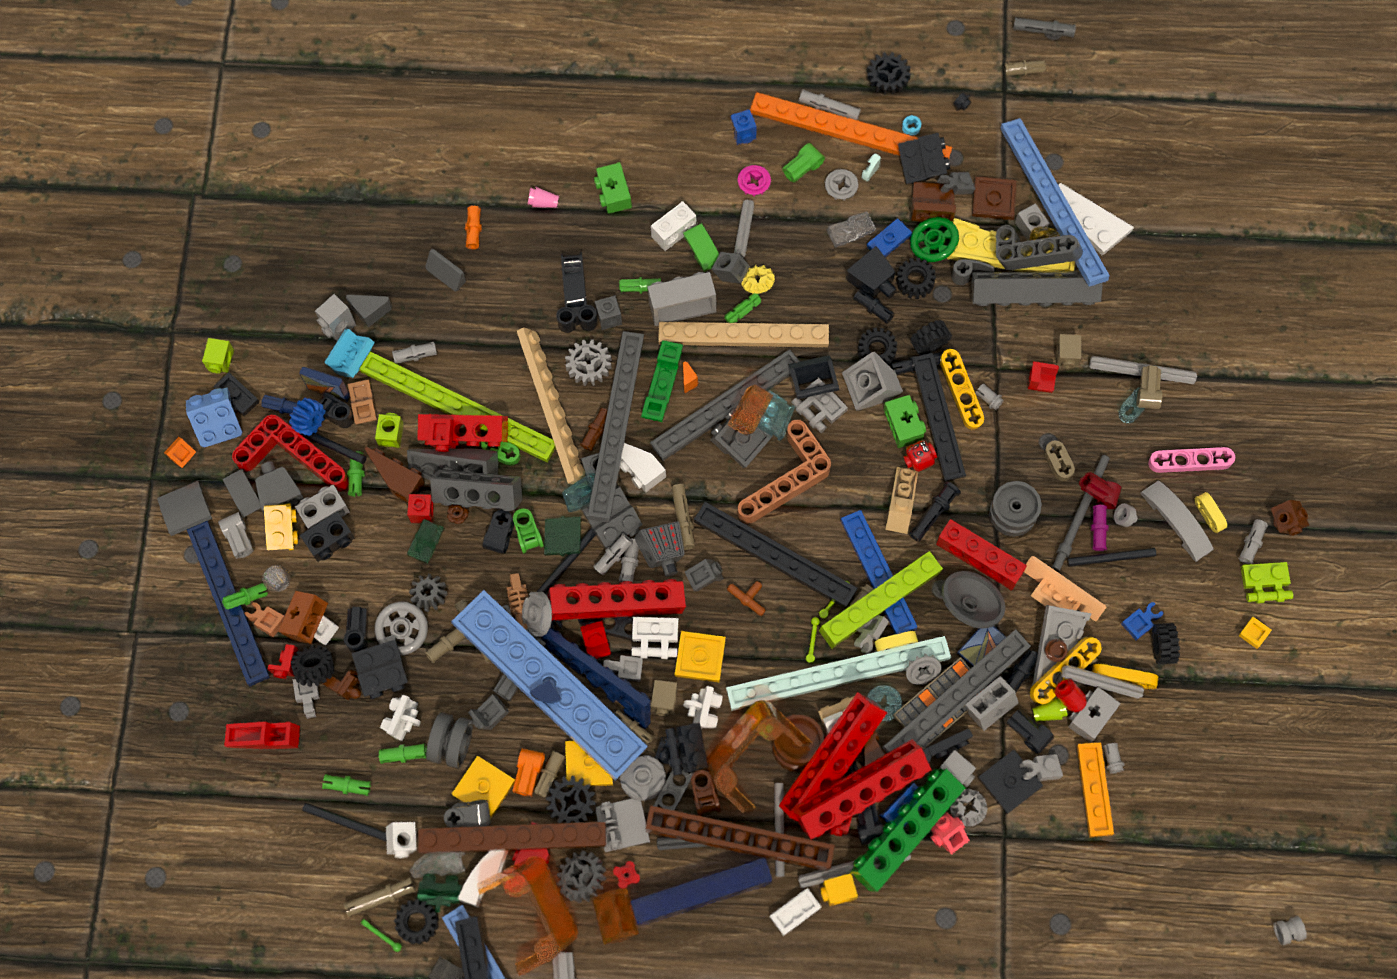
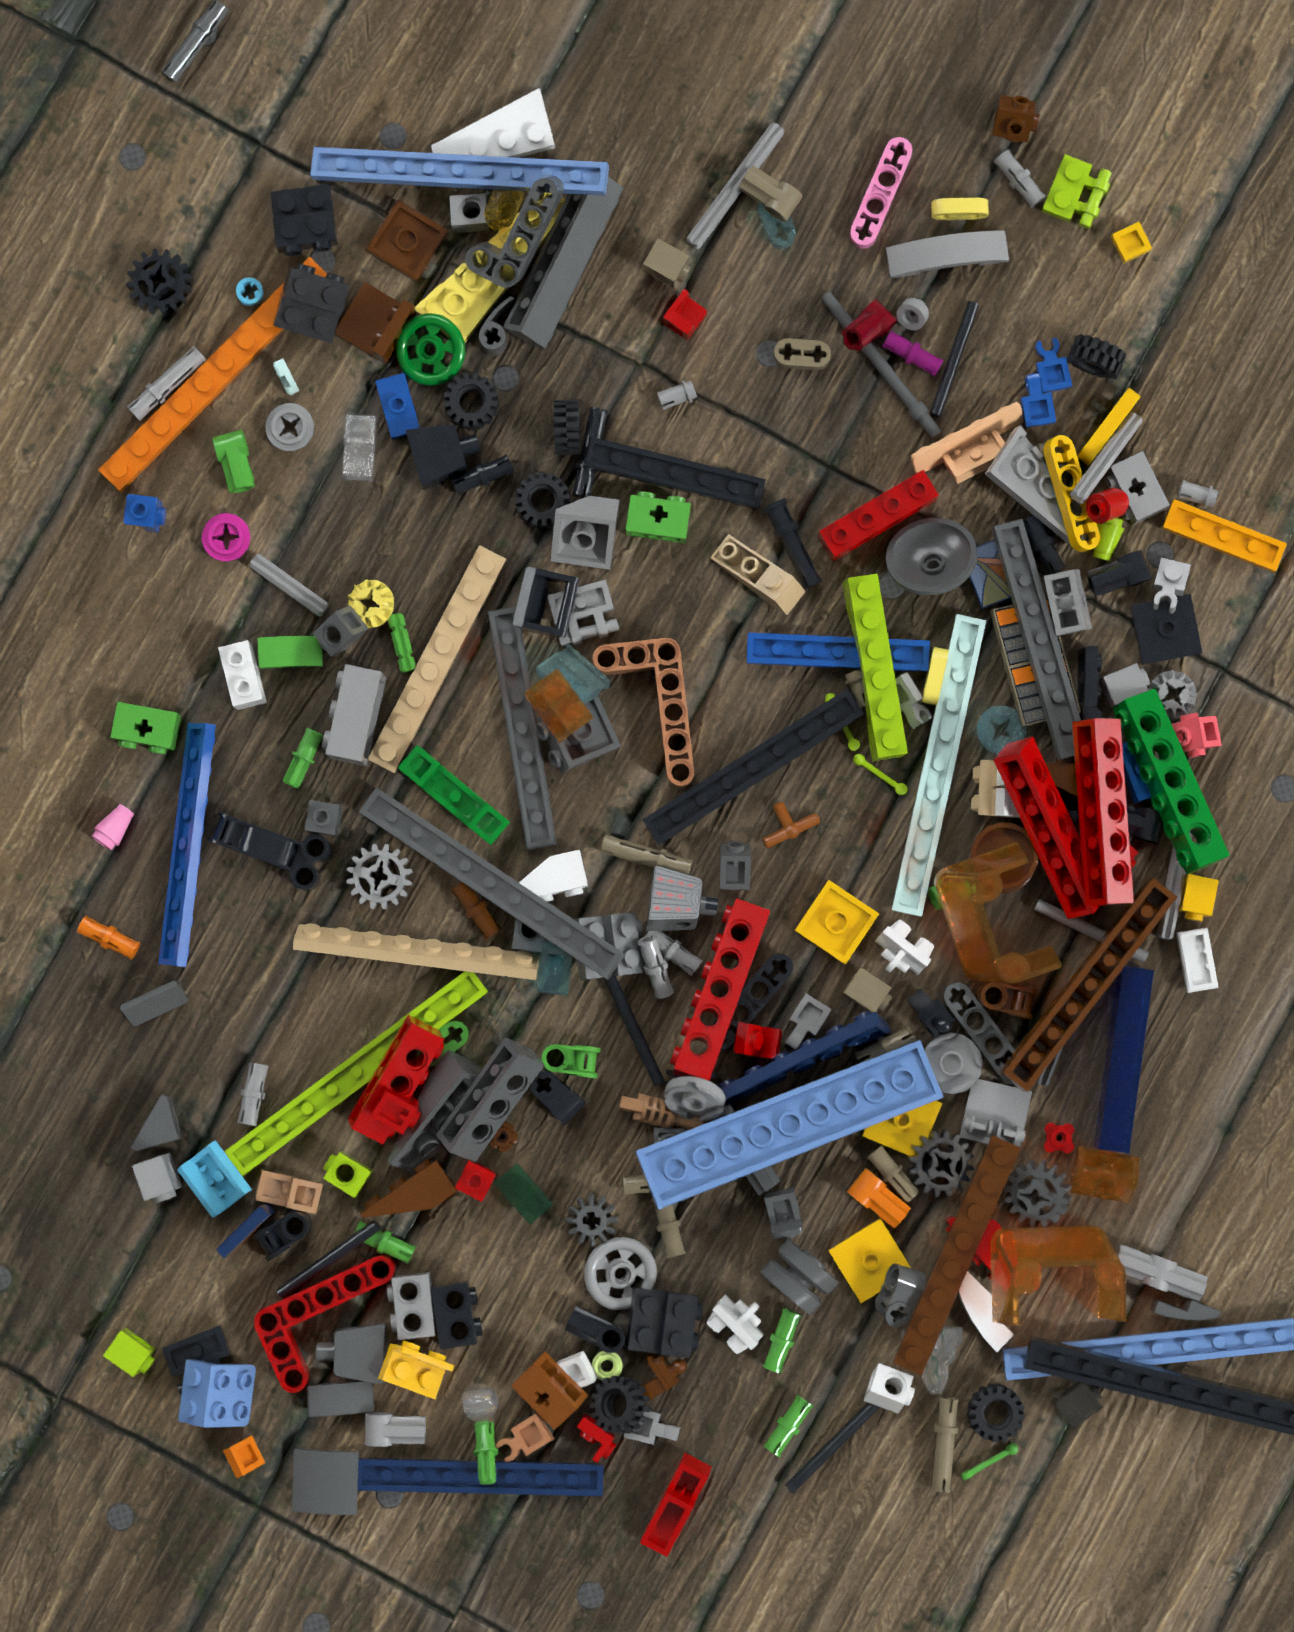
camera: 65 degrees left, 15 degrees up
(278, 404) = (242, 1296): dark blue axle -> none
(307, 416) = (283, 1272): blue gear -> none
(337, 642) = (614, 1358): none -> yellowish green plate
(439, 893) = (979, 1372): clear green hips -> none
(546, 693) = (803, 1133): dark blue tile -> none
(557, 242) = (187, 844): none -> blue plate
(562, 536) = (597, 1018): clear green piece -> none
(655, 630) = (781, 961): white plate -> none
(690, 377) = (465, 757): orange slope -> none
(691, 748) = (952, 989): black plate -> none
(920, 456) = (714, 522): red head -> none
(924, 675) = (986, 662): light grey gear -> none
(958, 182) = (366, 275): dark grey plate -> none
(958, 390) = (651, 428): yellow beam -> none
(962, 102) = (250, 208): black plate -> none
(972, 134) = (304, 219): none -> black plate
(1015, 508) = (838, 461): dark grey wheel -> none
(1024, 68) = (241, 100): dark tan axle -> none
(1056, 650) = (1045, 492): reddish brown plate -> none
(1111, 623) = (1037, 407): none -> blue plate

